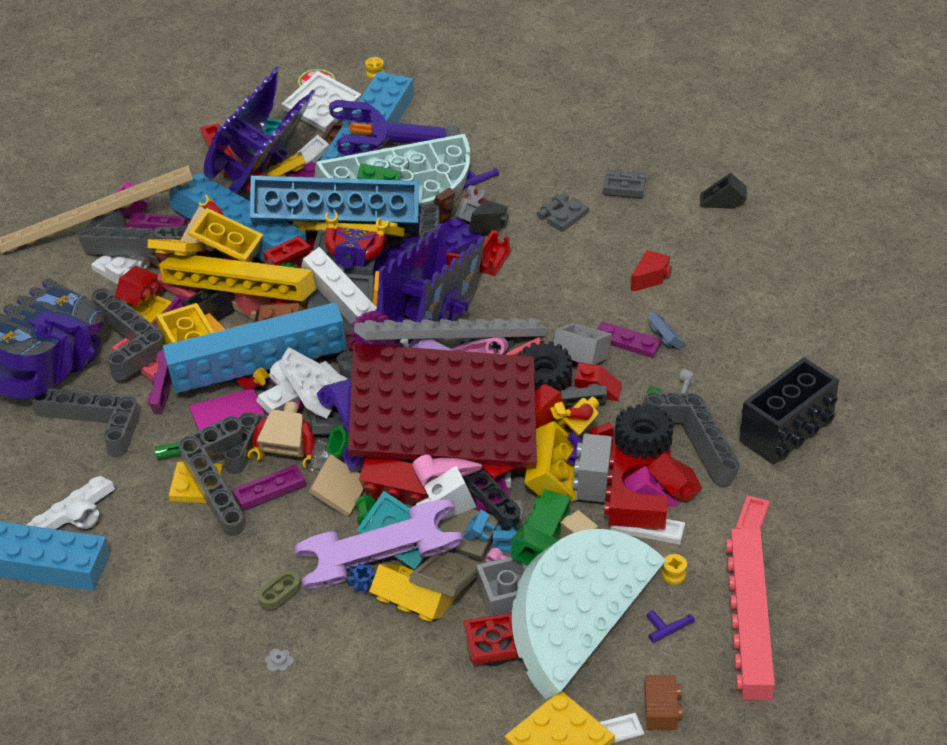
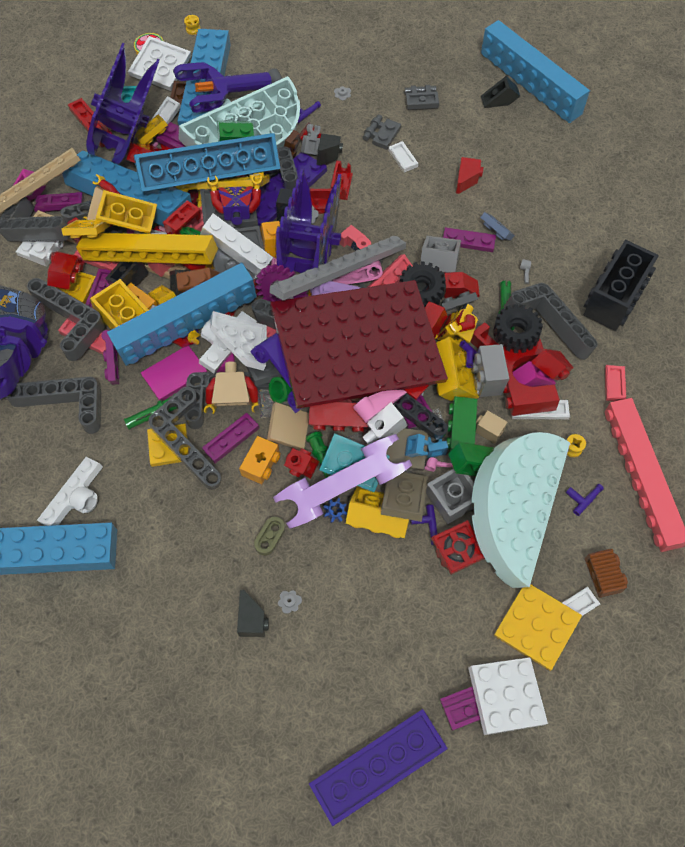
camera: 15 degrees left, 20 degrees up
(227, 663) = (251, 618): none -> pearl dark grey slope
(294, 514) = (260, 450): none -> light orange brick
(340, 521) = (301, 463): none -> red brick
(472, 611) = (430, 519): none -> dark purple piece
(483, 310) = (354, 238): none -> coral leg
(530, 165) = (342, 93): none -> light grey plant
(579, 241) = (403, 156): none -> white tile
(772, 175) = (534, 71): none -> dark azure brick

